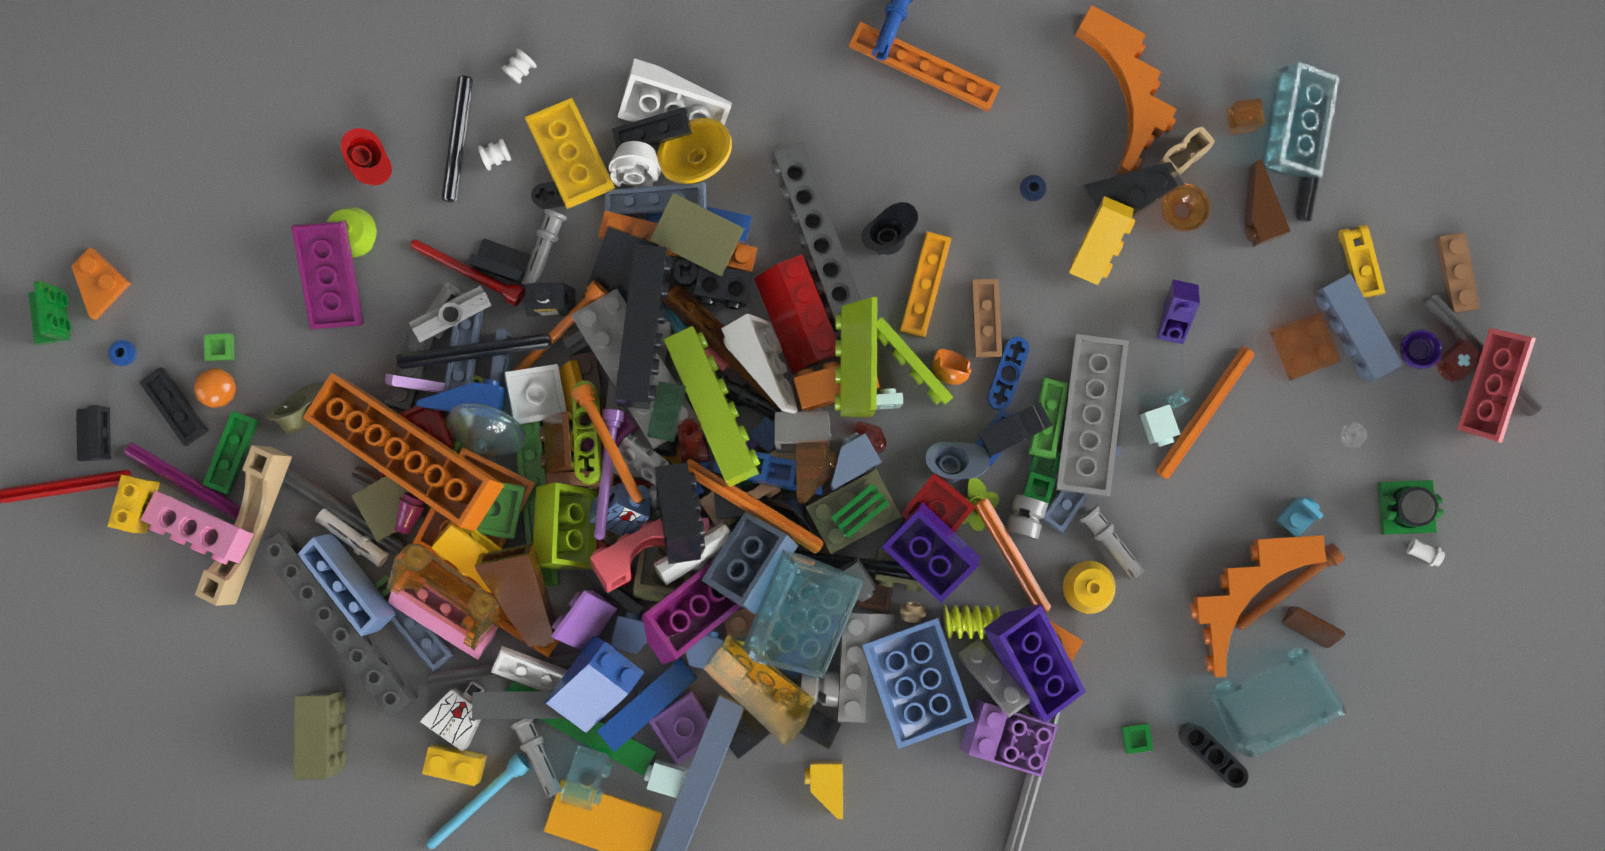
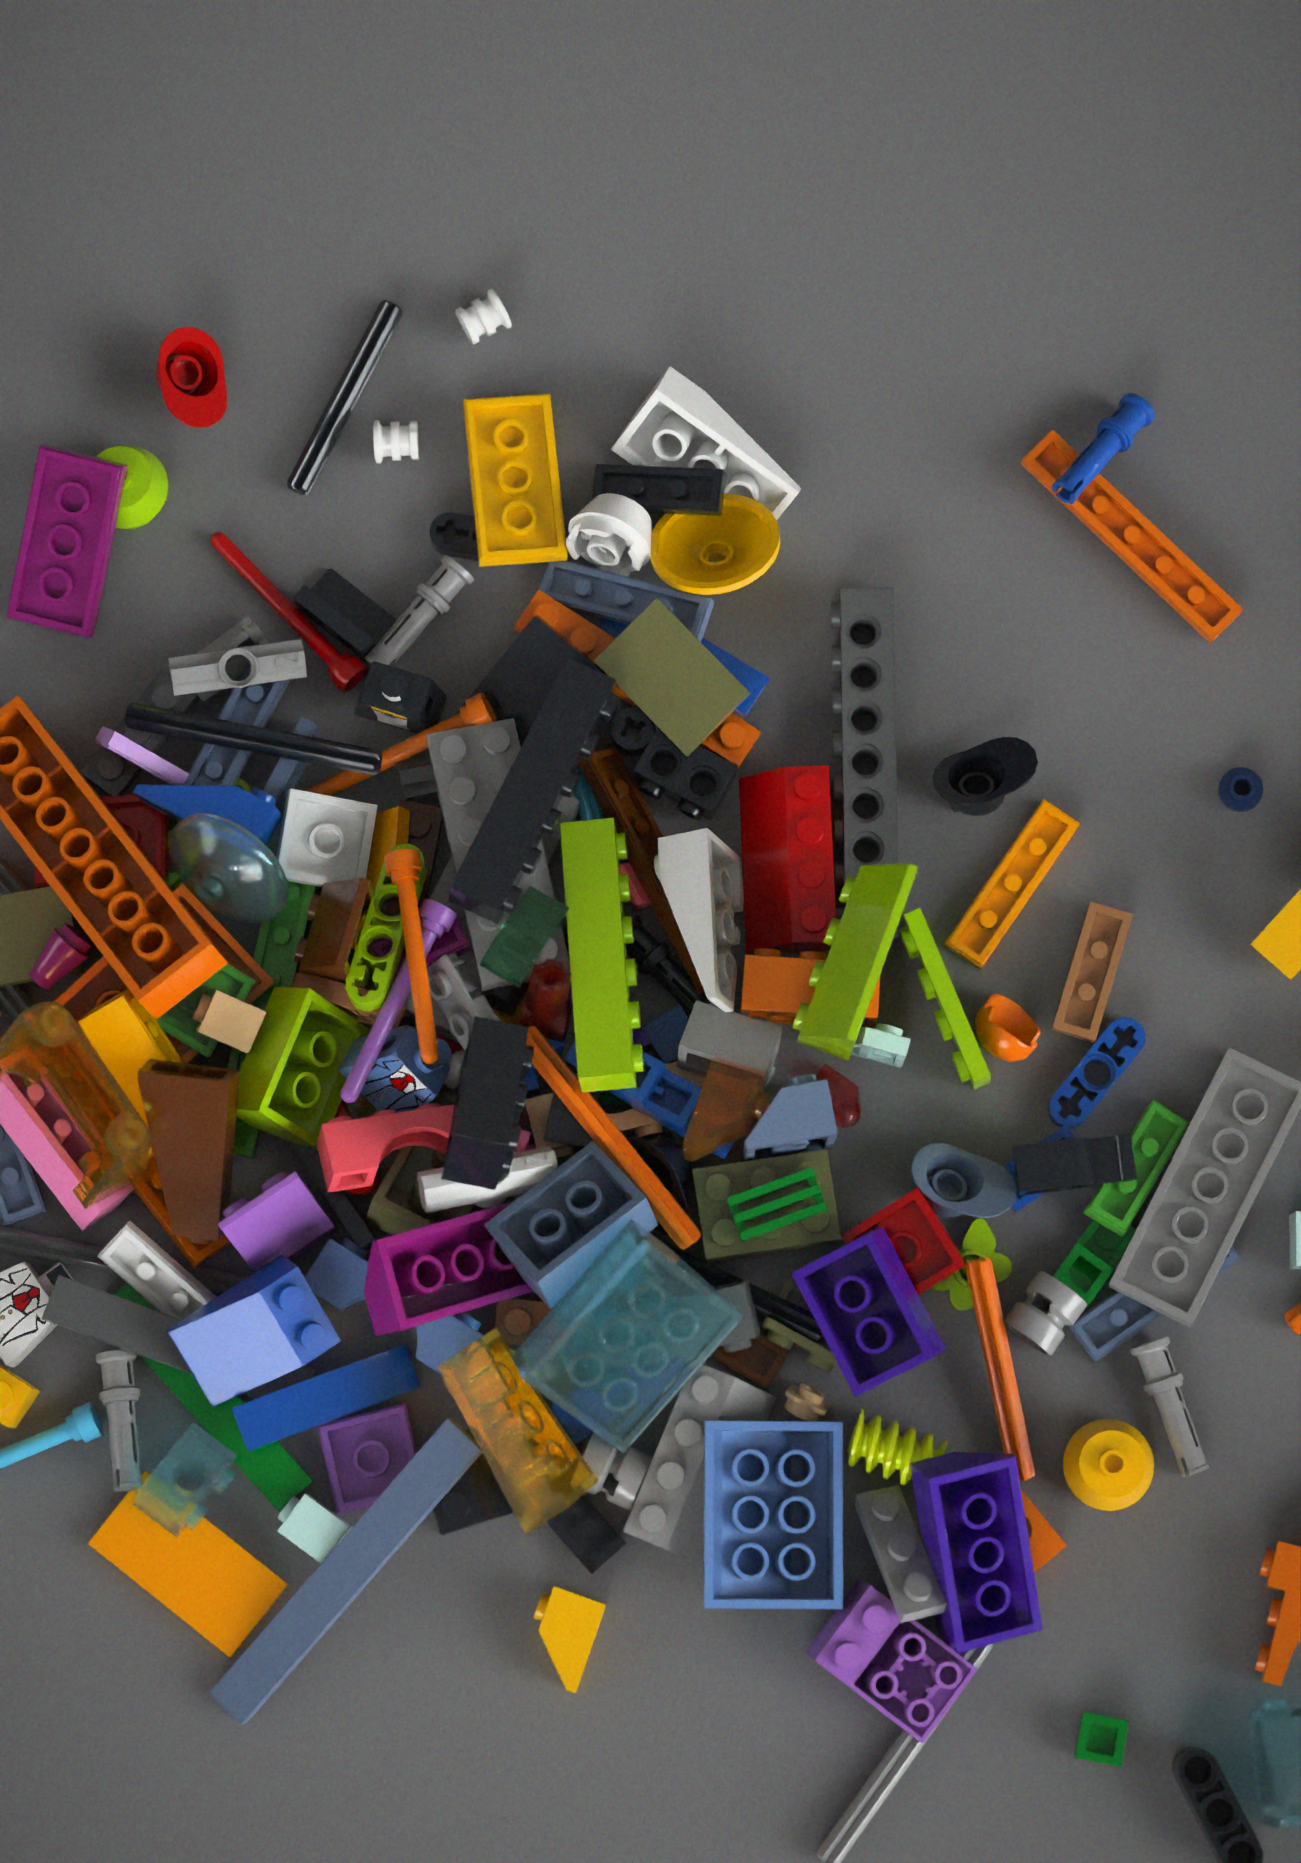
camera: 25 degrees right, 5 degrees down
(516, 515) = (228, 1020): none -> tan brick

